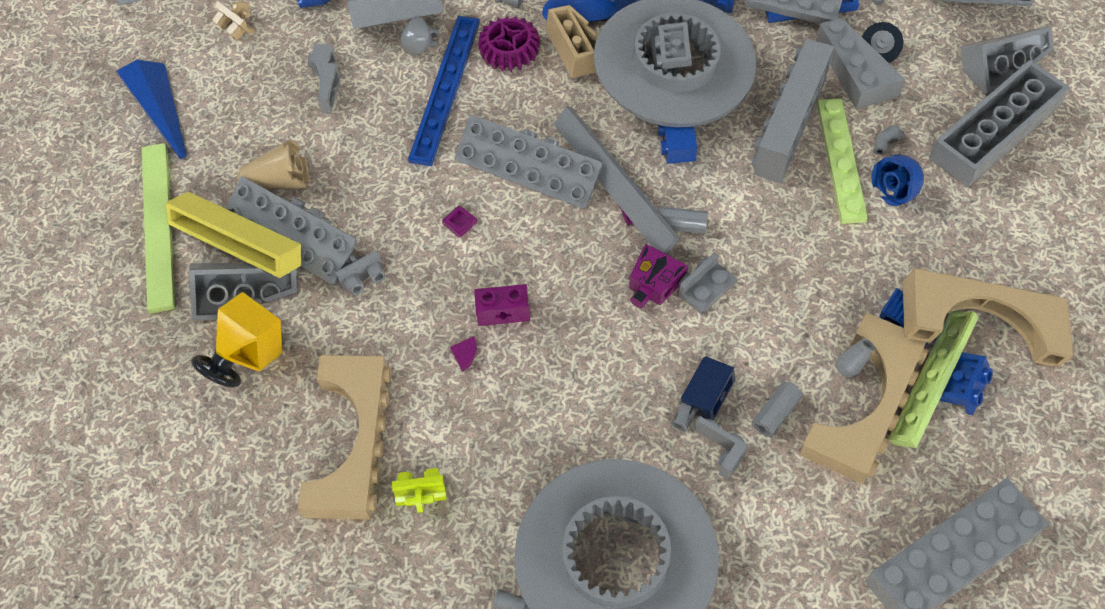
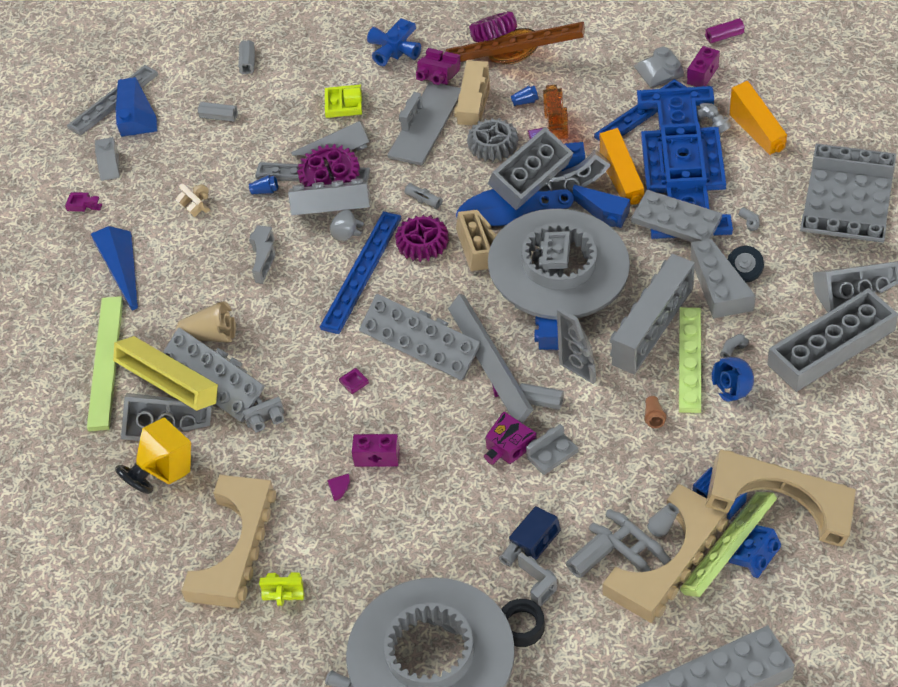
camera: 10 degrees right, 10 degrees down
(98, 32) = (80, 201): none -> magenta plate
(715, 159) = (574, 347): none -> light grey wedge
(729, 486) = (528, 606): none -> black tyre
(815, 227) = (654, 414): none -> nougat cone
(824, 402) = (631, 553): none -> light grey piece

